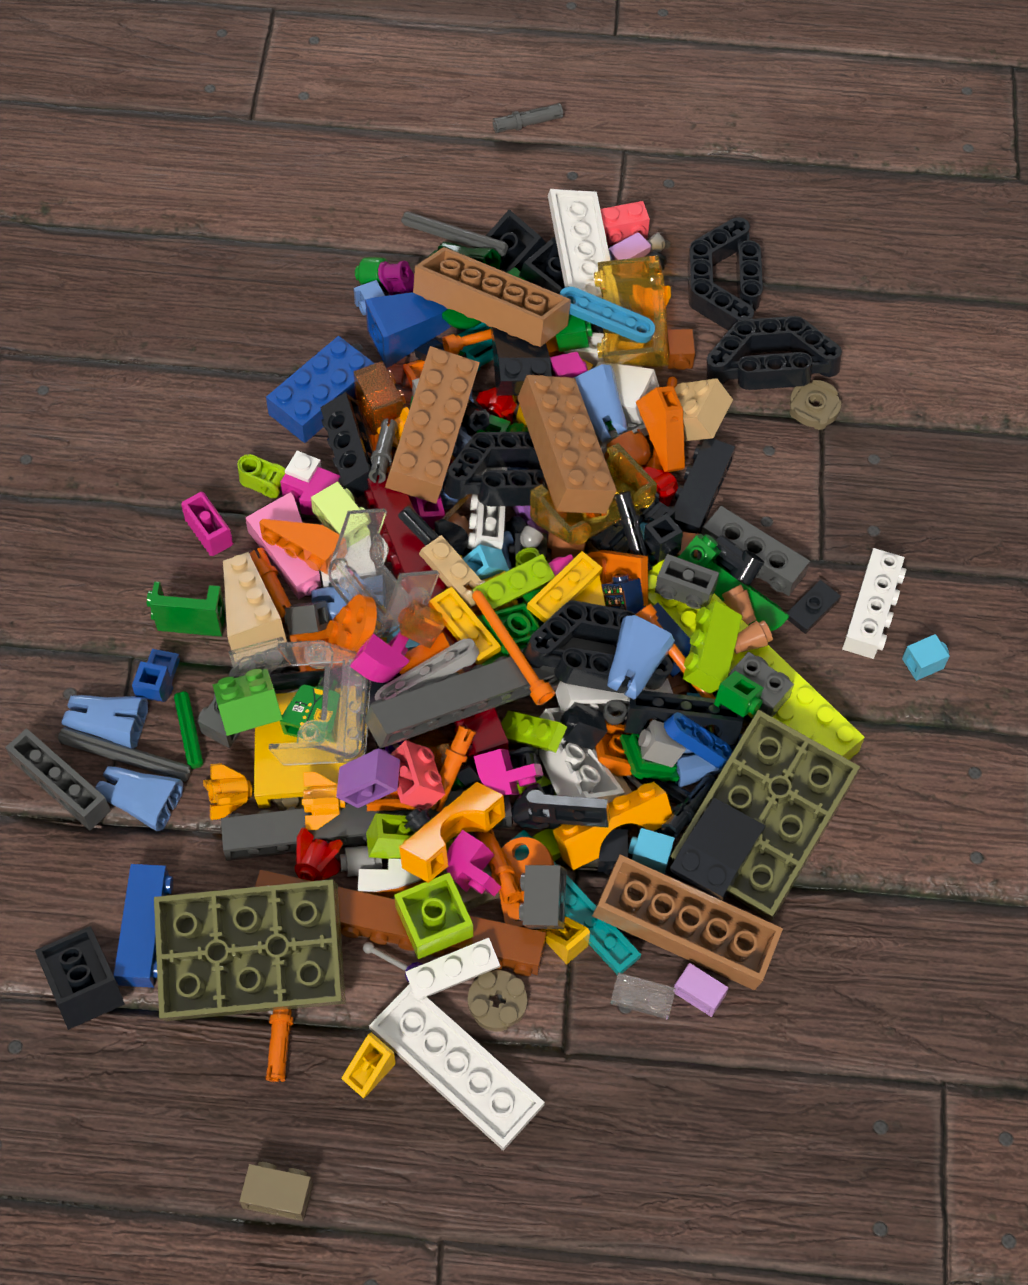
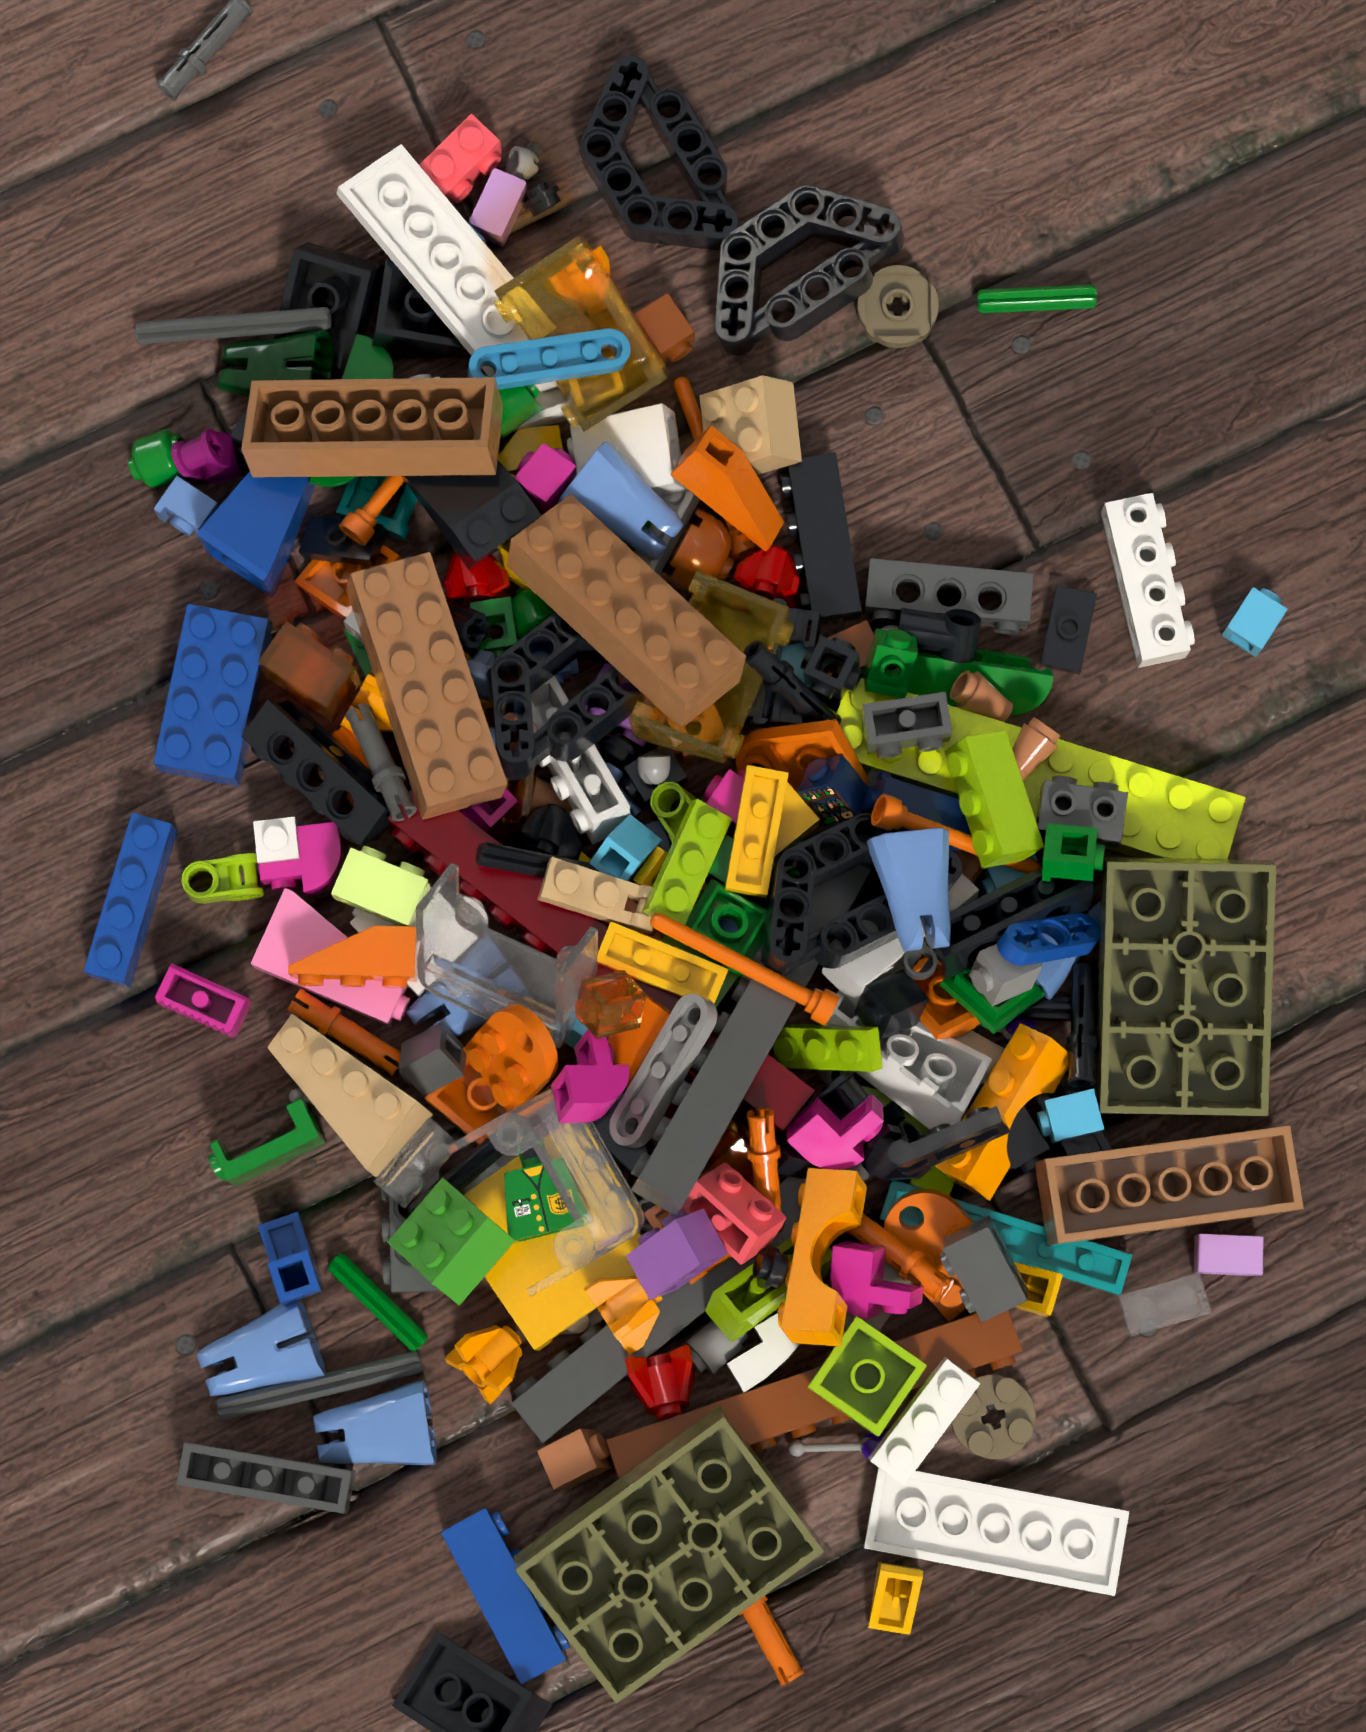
camera: 30 degrees left, 20 degrees up
(206, 458) = (130, 900): none -> blue brick
(235, 870) = (575, 1458): none -> nougat brick
(717, 849) = (1158, 1076): black slope -> none
(896, 439) = (1036, 298): none -> green axle

